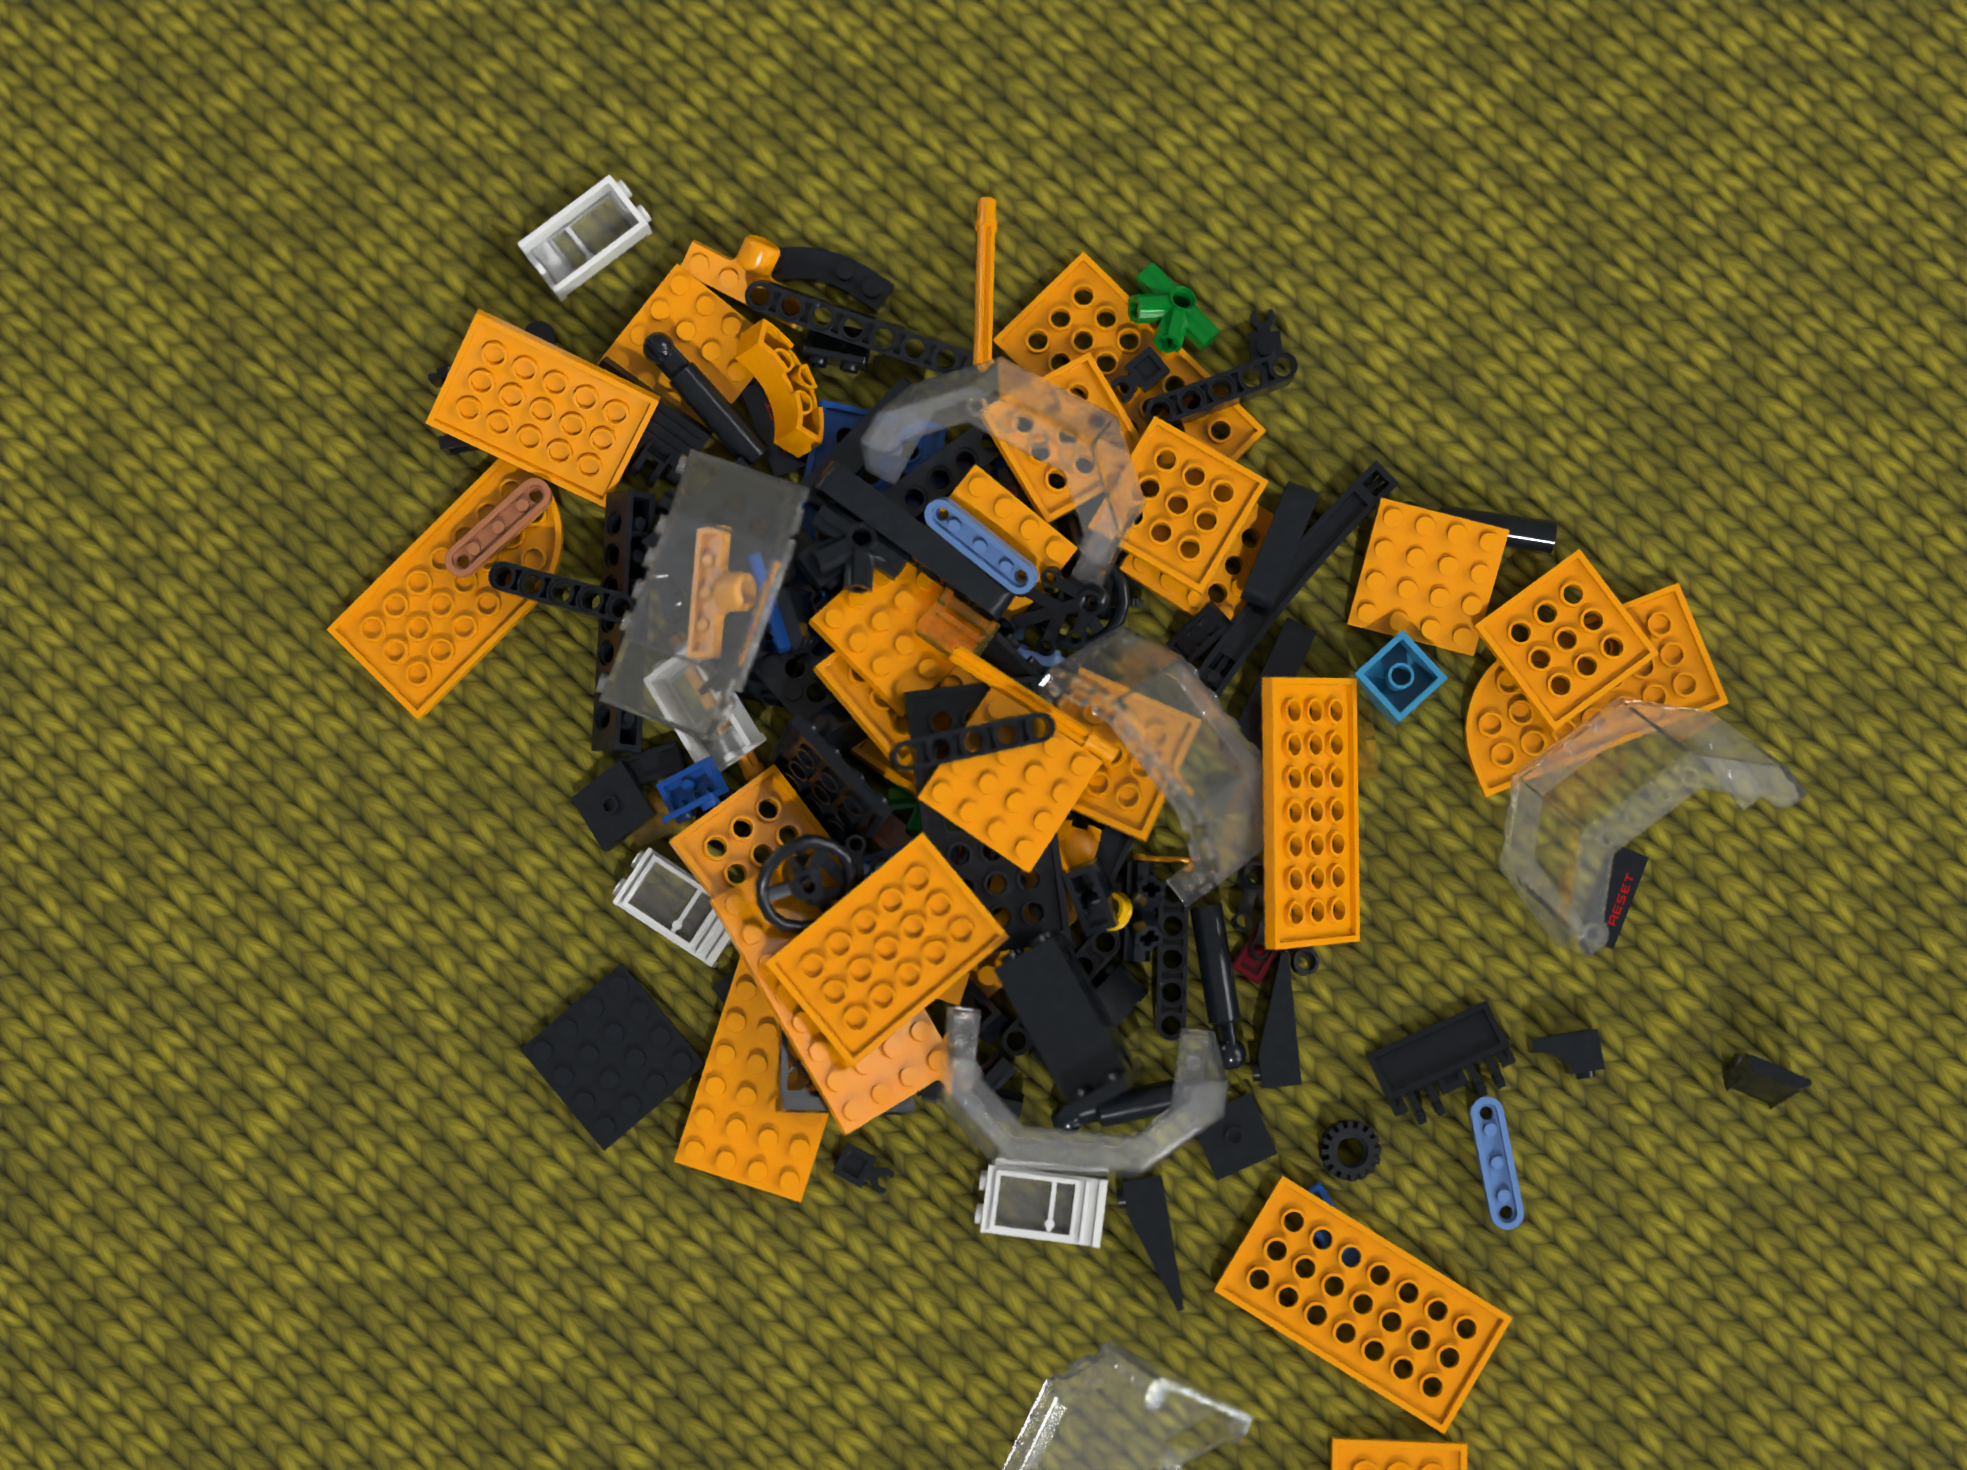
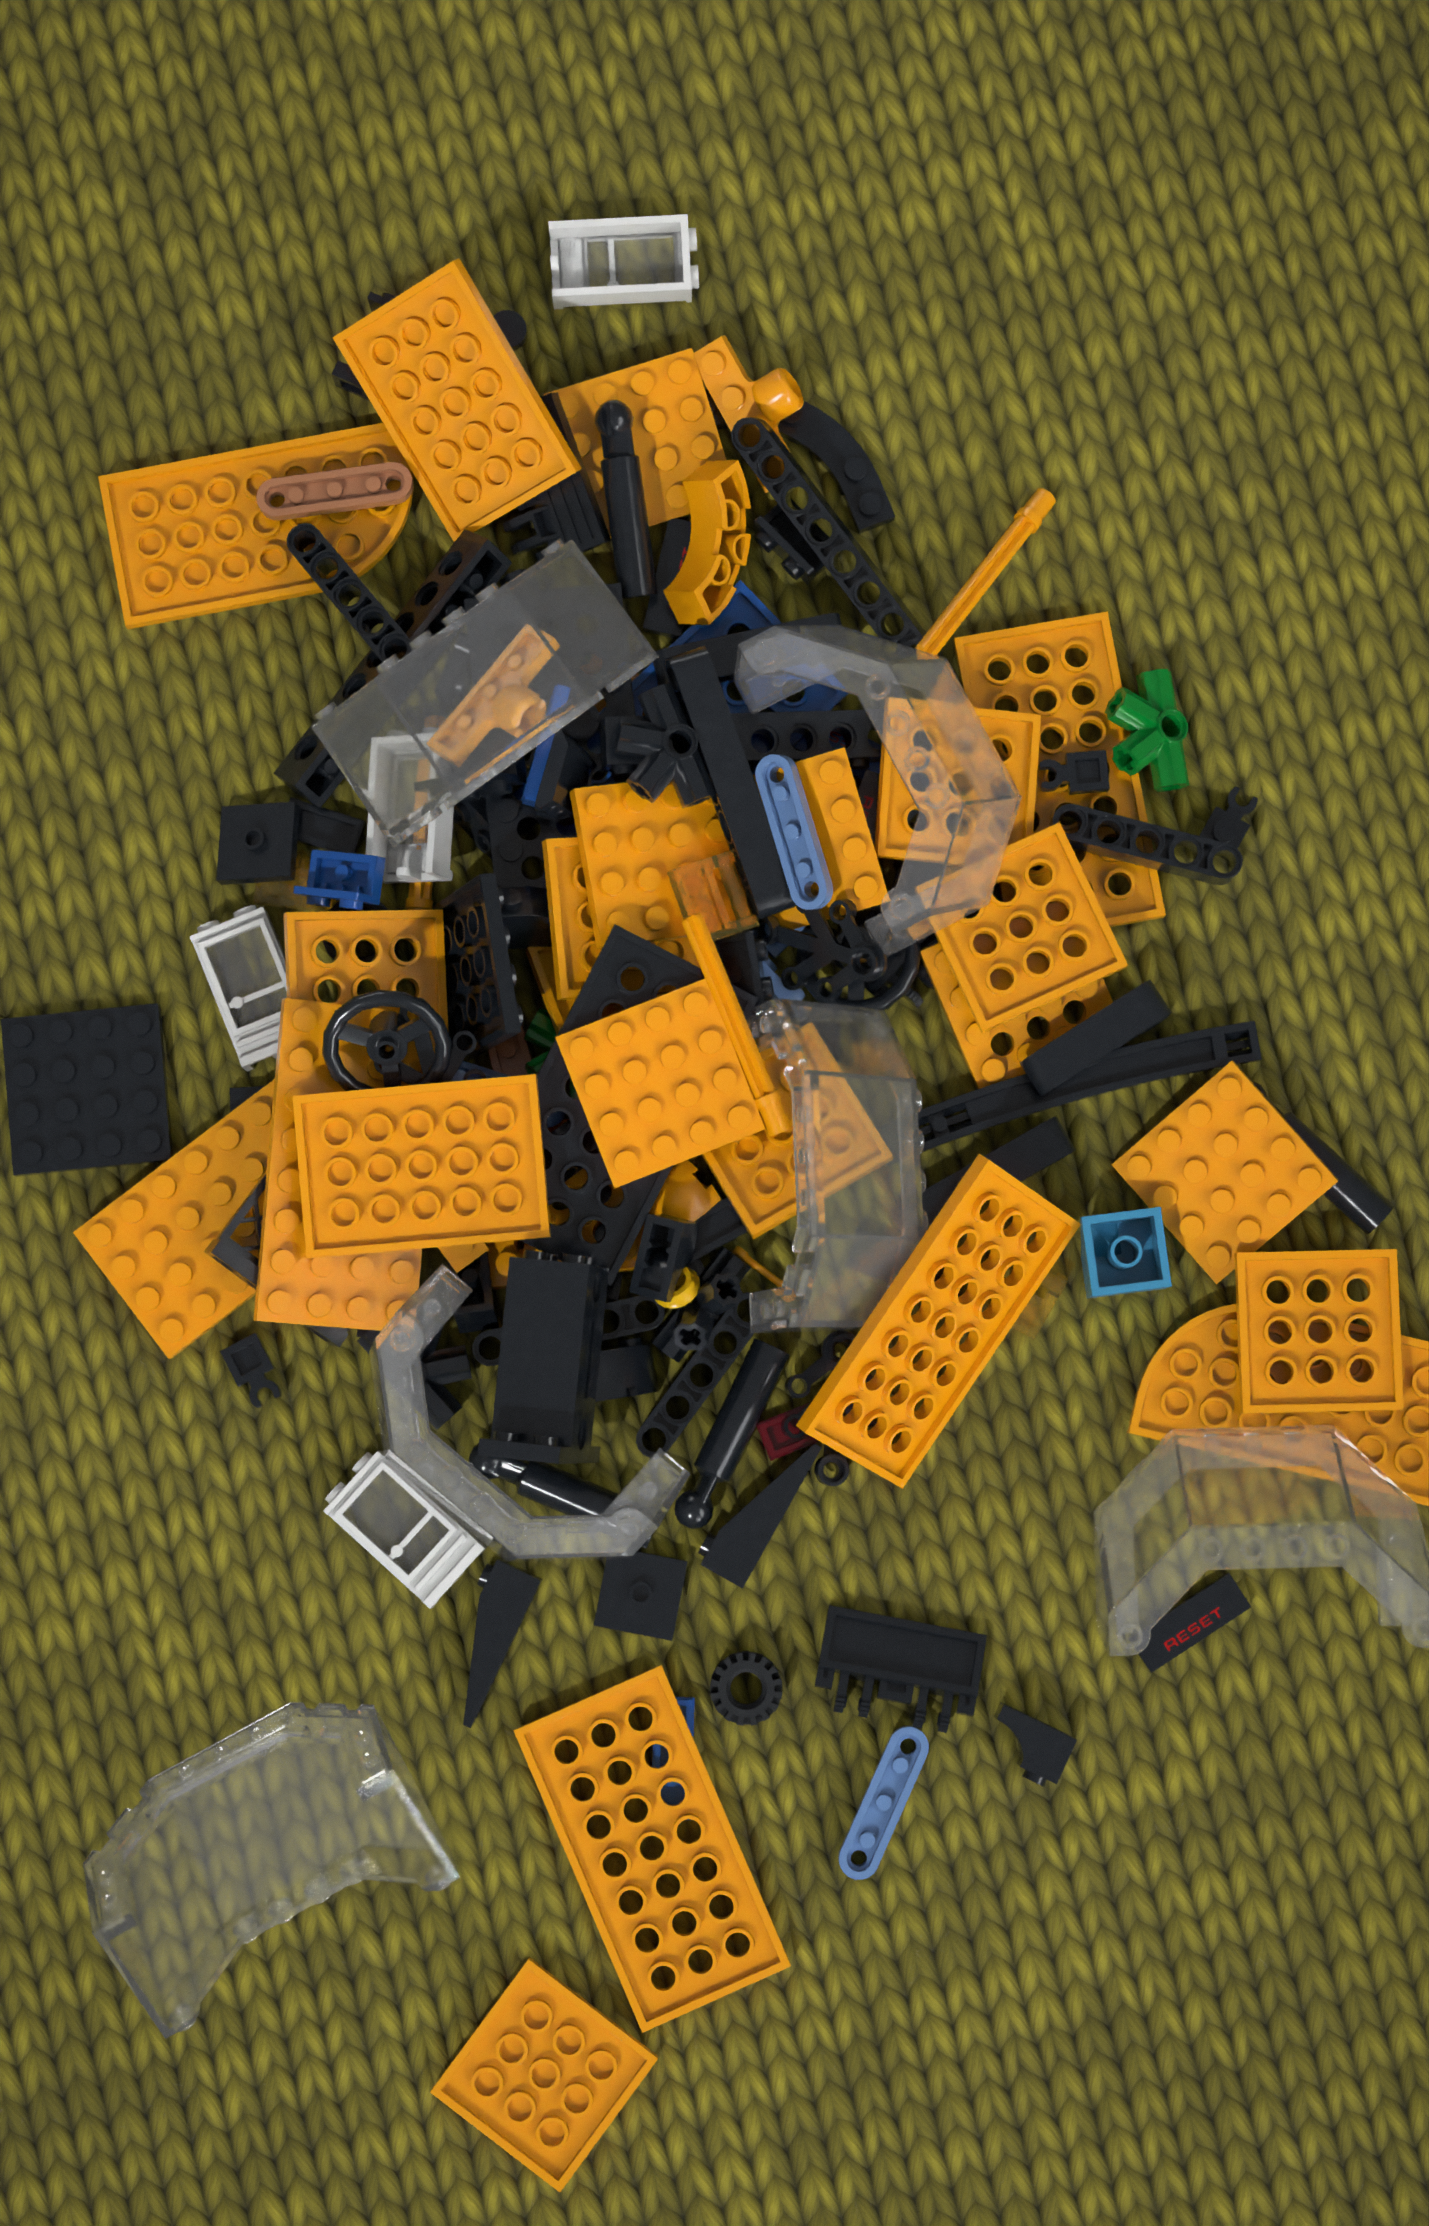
camera: 30 degrees right, 0 degrees up
(988, 741) = (666, 1018): black beam -> none
(1200, 633) = (955, 1071): black plate -> none
(1763, 1079) = (1208, 1907): black slope -> none

